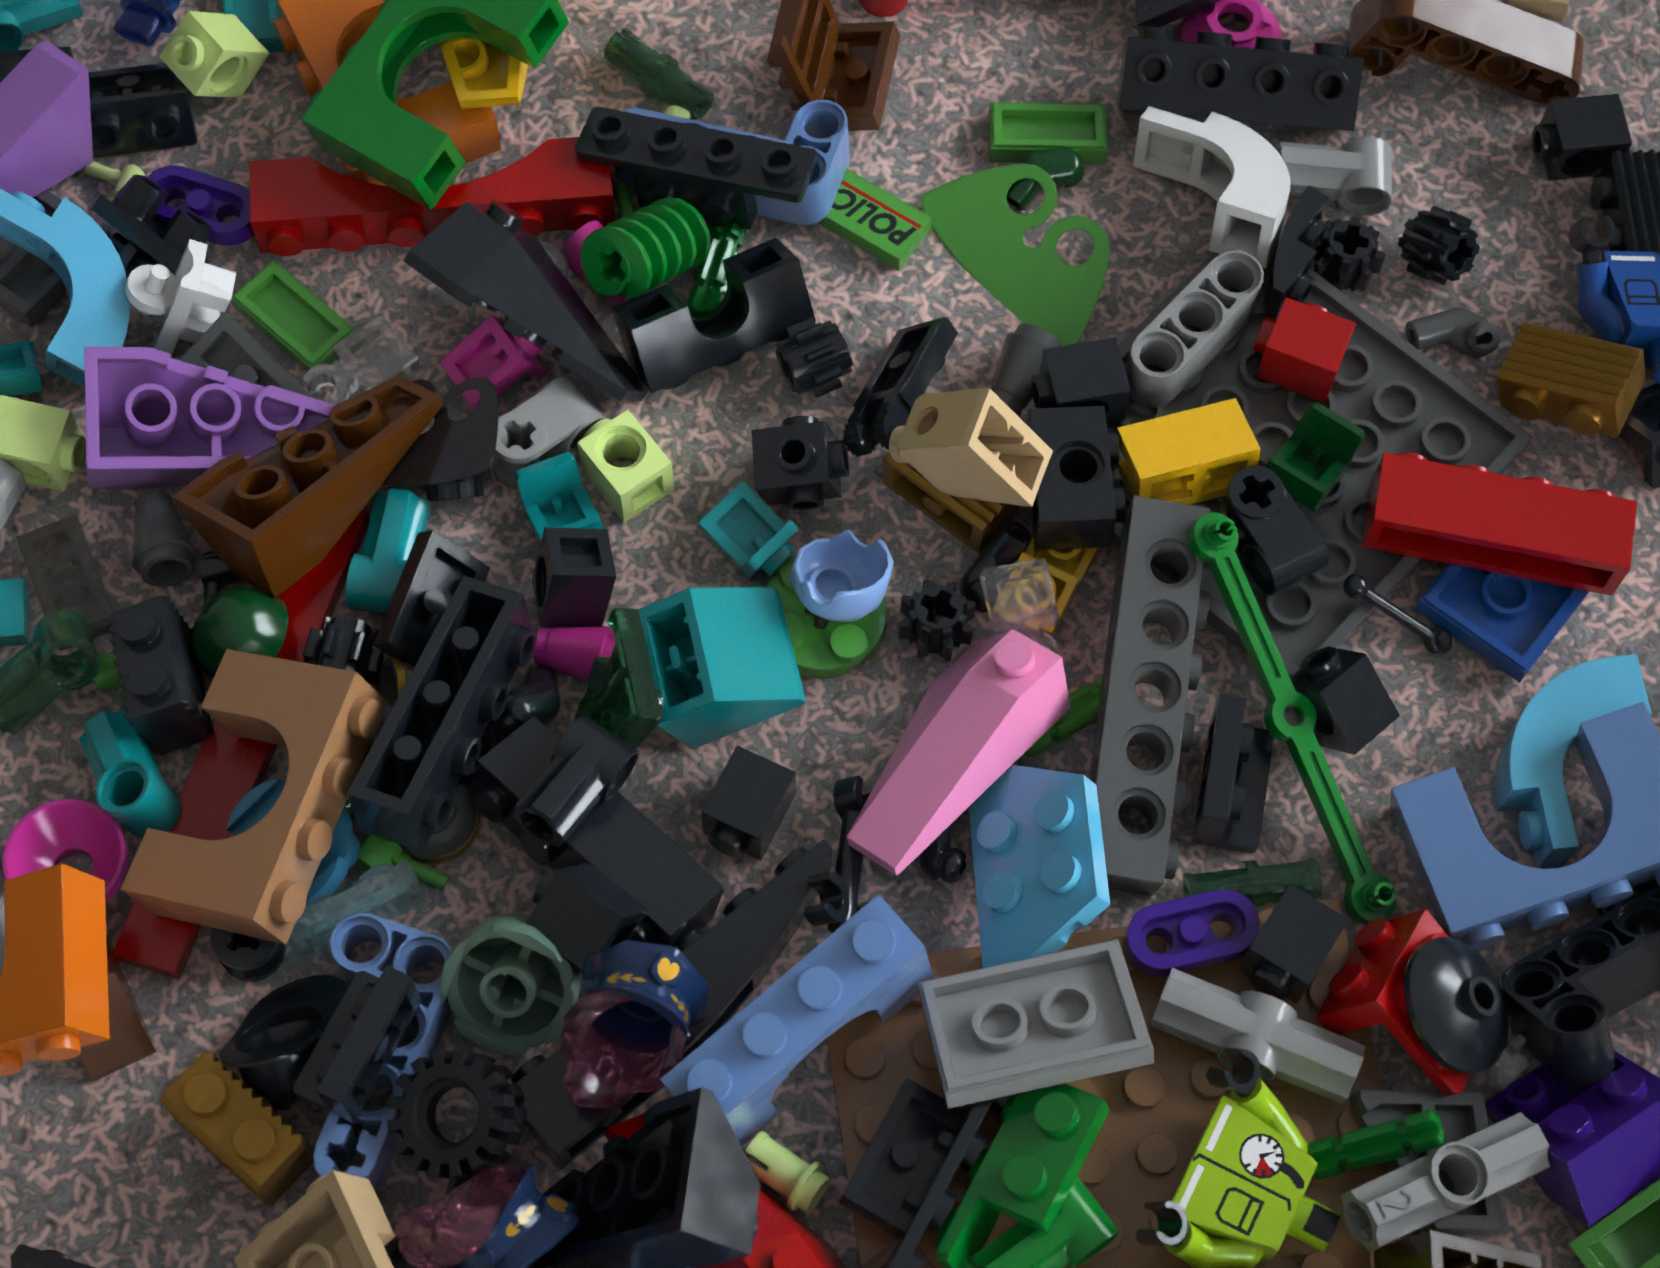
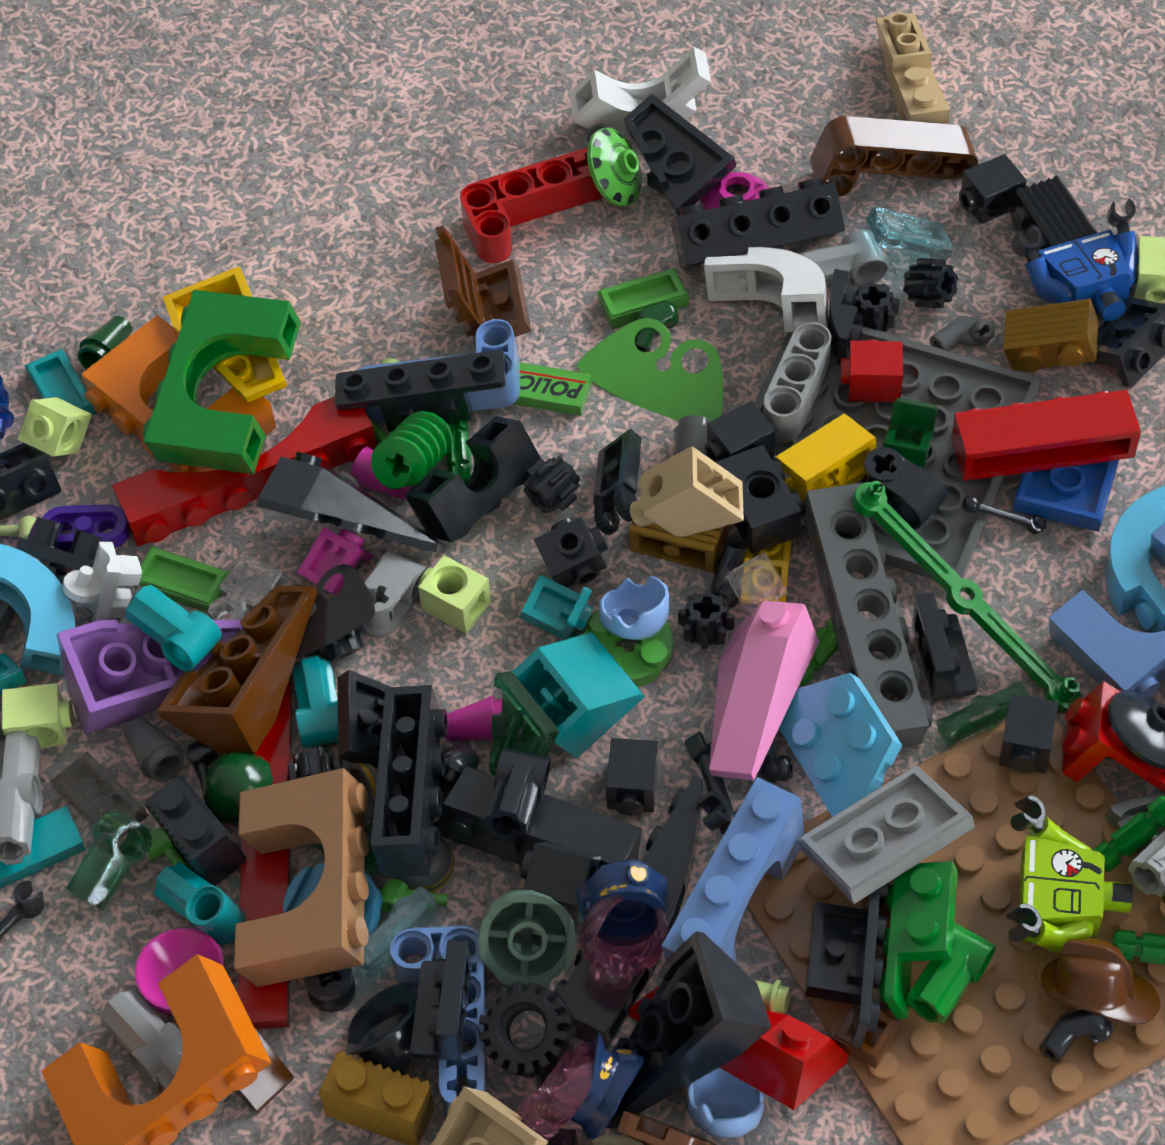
camera: 15 degrees left, 10 degrees down
(241, 403) = (182, 635): none -> teal piece
(555, 496) = (419, 635): teal bracket -> none
(573, 577) = (454, 671): black brick -> none
(657, 74) = (363, 343): clear green pin -> none
(1189, 934) = (956, 752): dark purple plate -> none
(1265, 1026) = (1061, 795): light grey piece -> none
(1346, 698) = (996, 572): black brick -> none
(1439, 164) = (909, 234): none -> clear light blue plate

